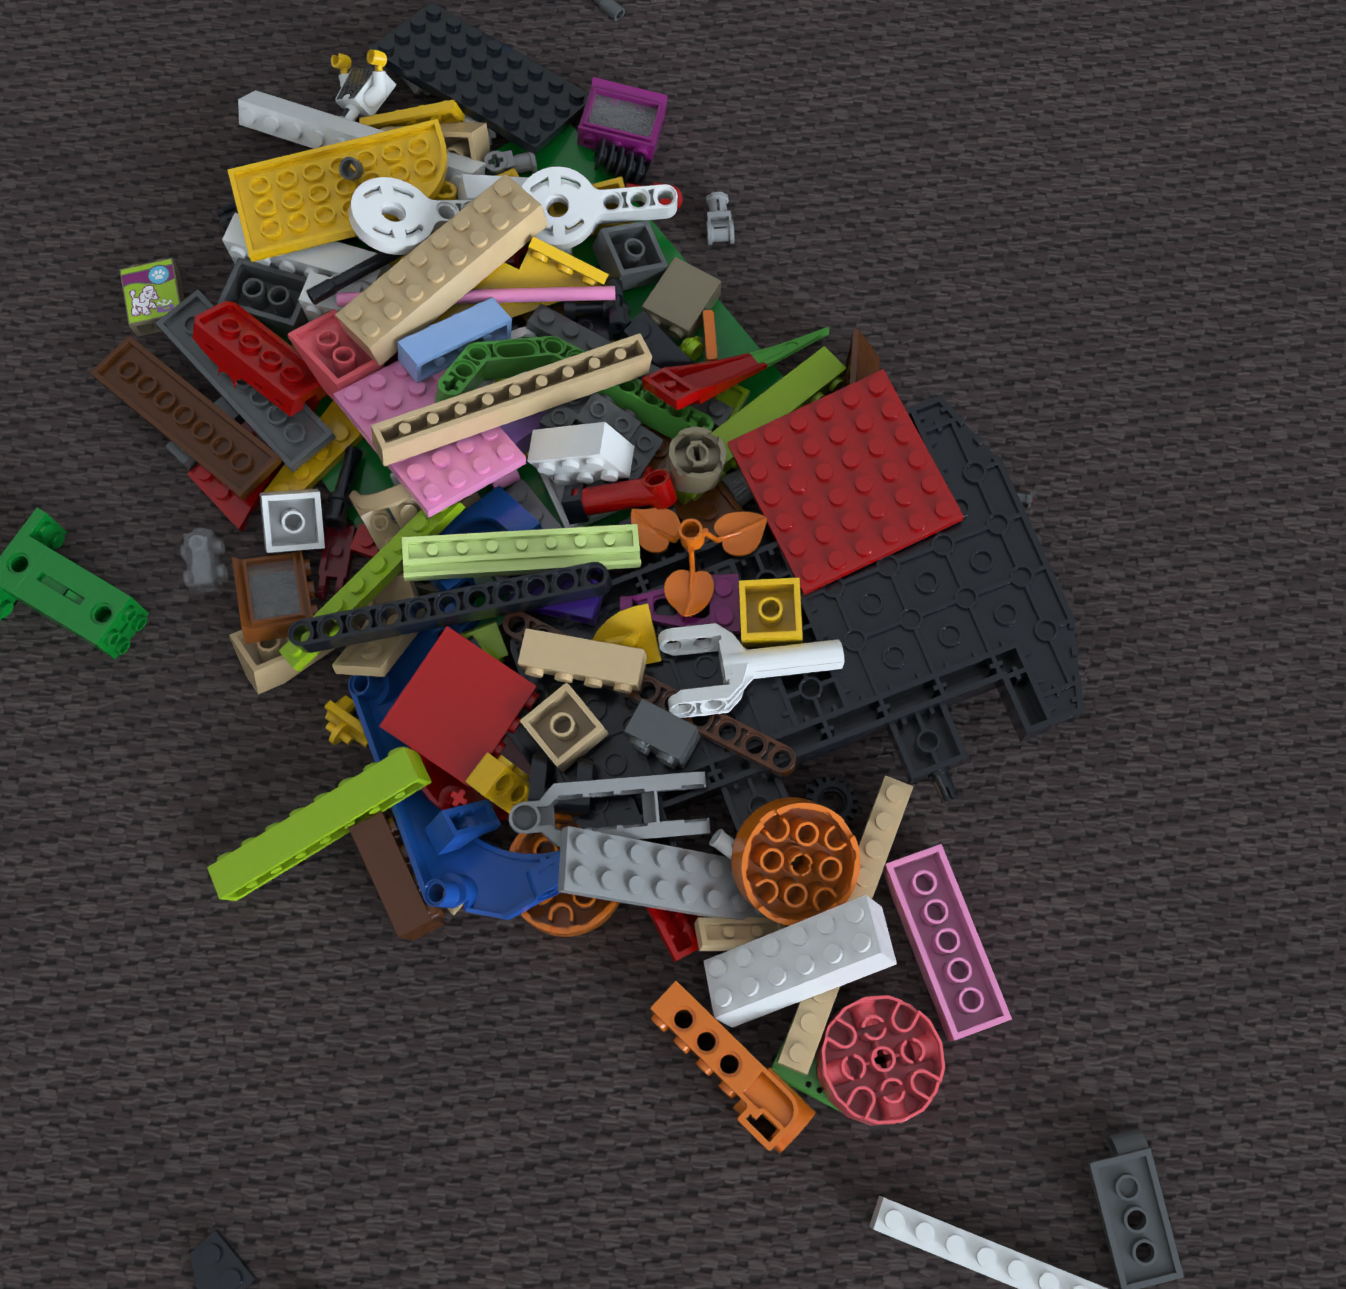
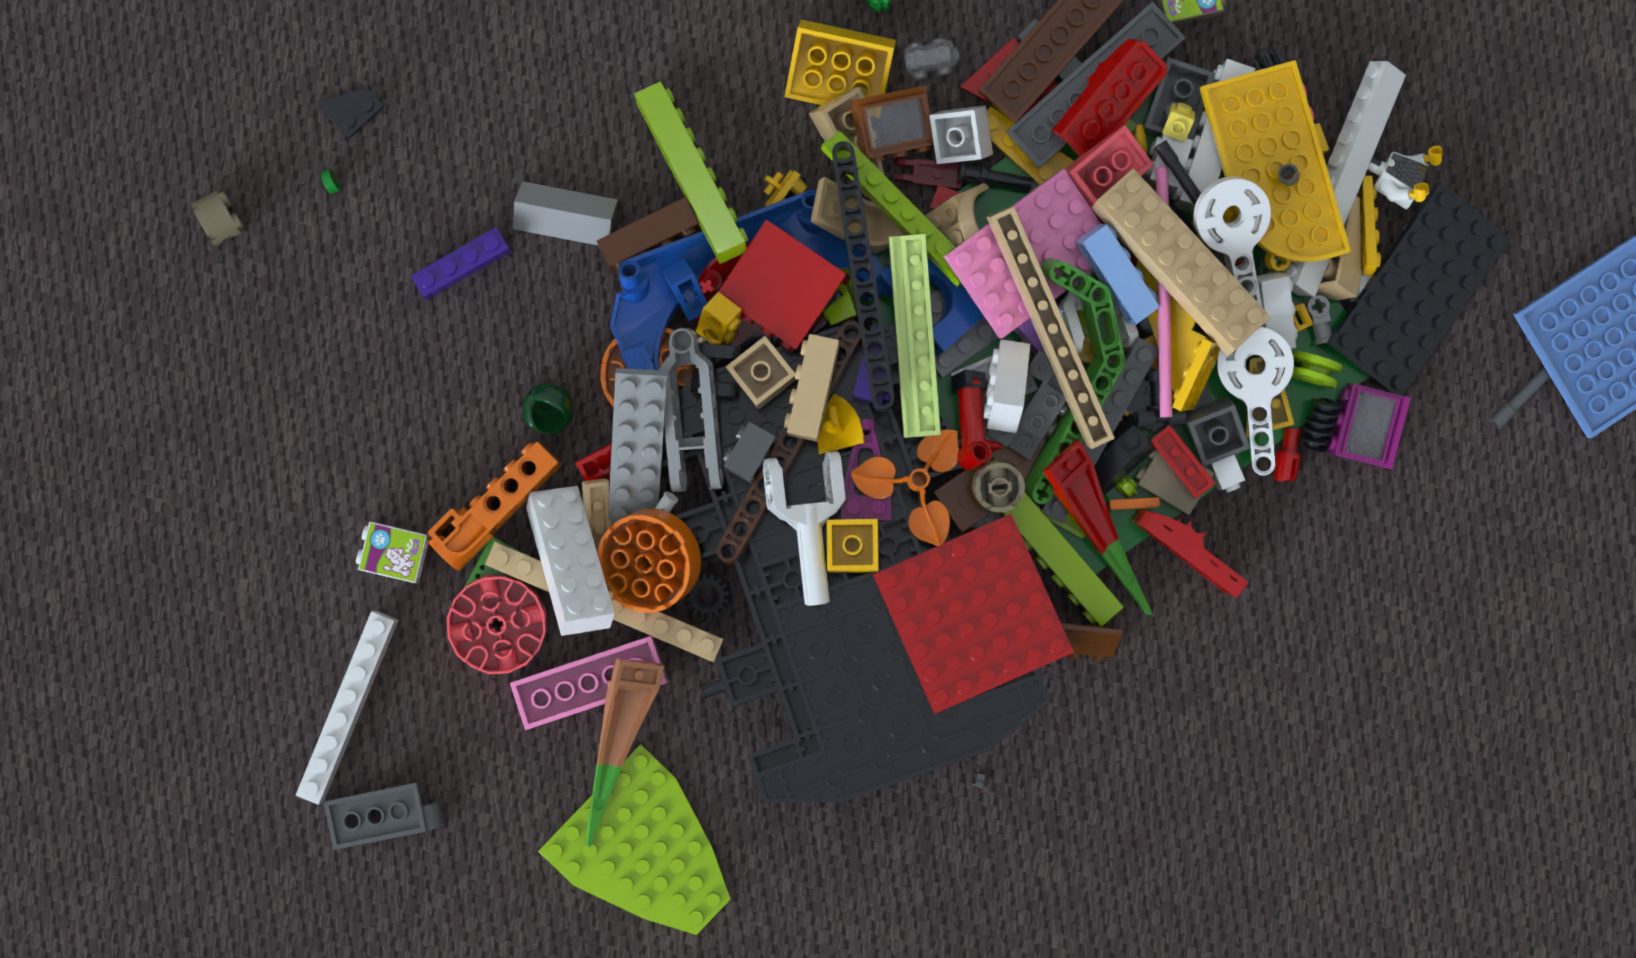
camera: 85 degrees right, 15 degrees up
(199, 665) = (836, 60): none -> yellow slope
(288, 283) = (1179, 121): none -> light yellow bracket
(366, 988) = (563, 213): none -> light grey slope
(423, 1118) = (461, 263): none -> dark purple brick
(564, 156) = (1315, 369): none -> lime wheel
(608, 1000) = (548, 409): none -> dark green piece
(664, 283) = (1182, 461): none -> red plate
(677, 245) = (1227, 474): none -> white brick
(719, 222) = (1258, 516): light grey connector -> none
(759, 279) = (1189, 547): none -> red piece
(793, 1204) = (393, 552): none -> brick
(973, 889) = (626, 705): none -> nougat plate
(1138, 879) = (646, 850): none -> lime piece

